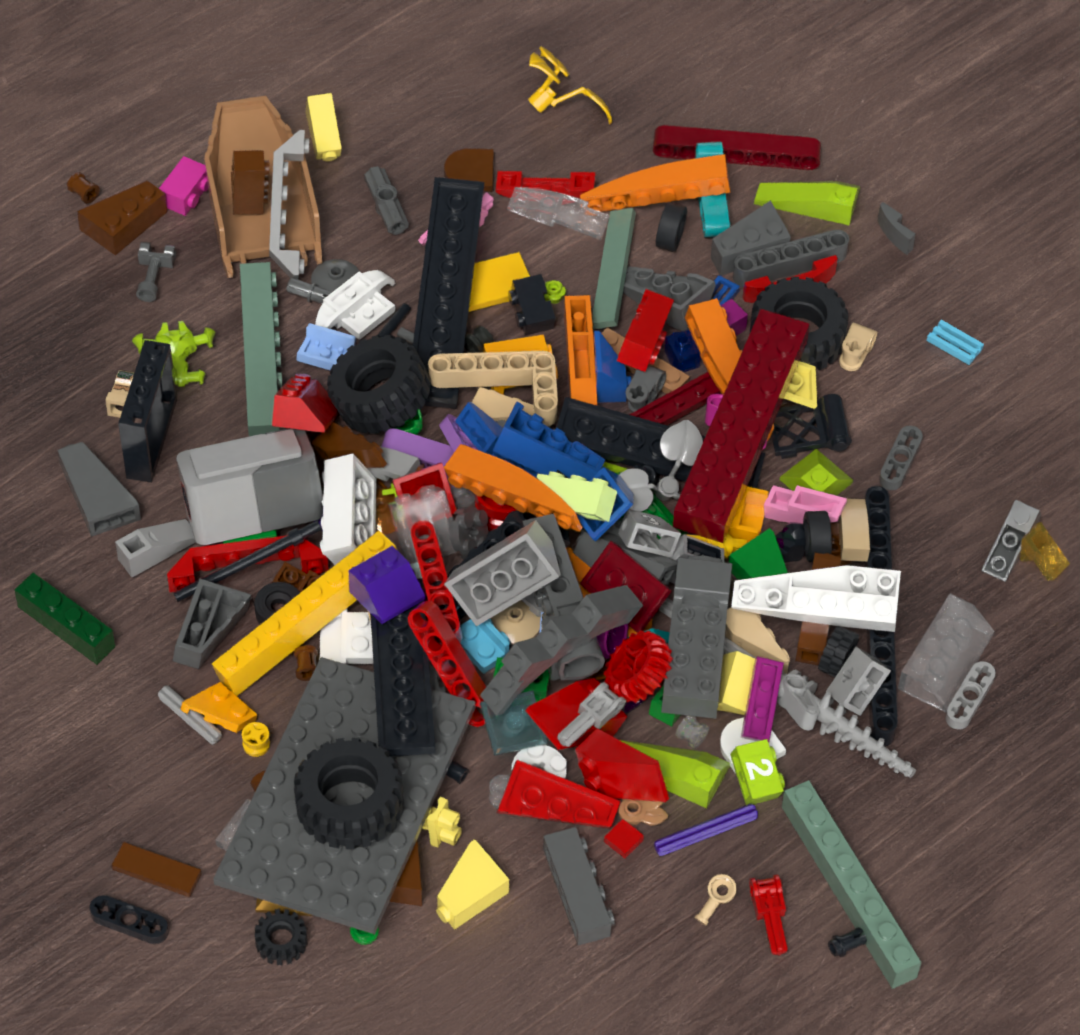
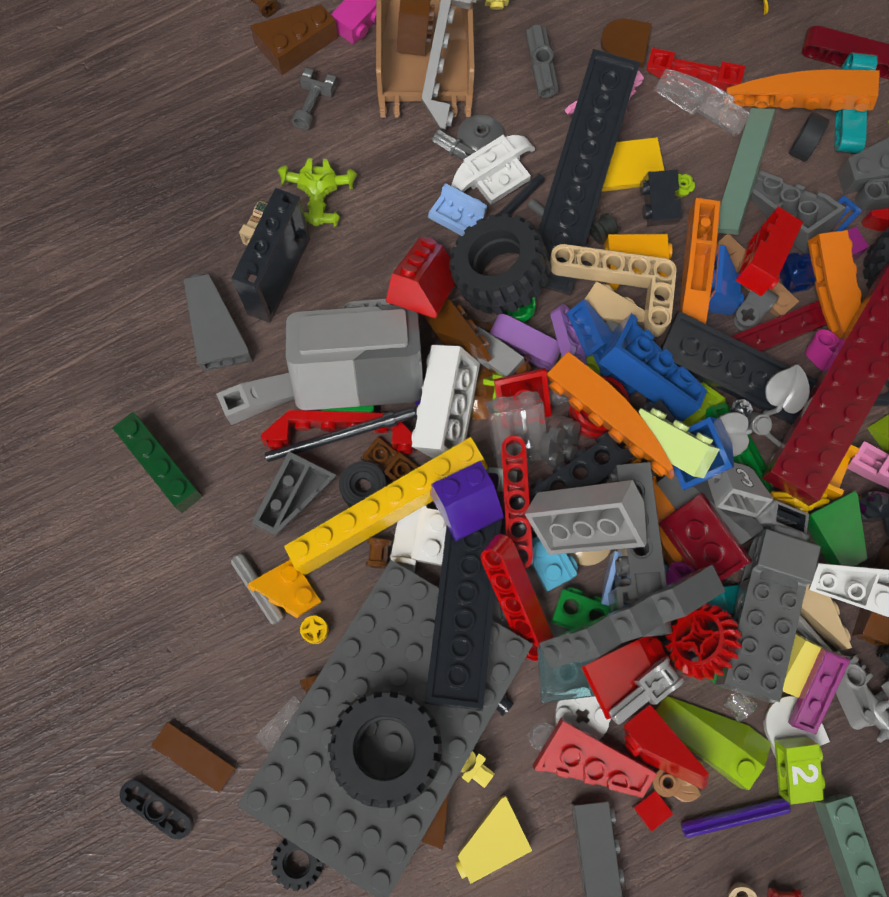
camera: 10 degrees right, 20 degrees up
(260, 345) = (396, 197): sand green brick -> none

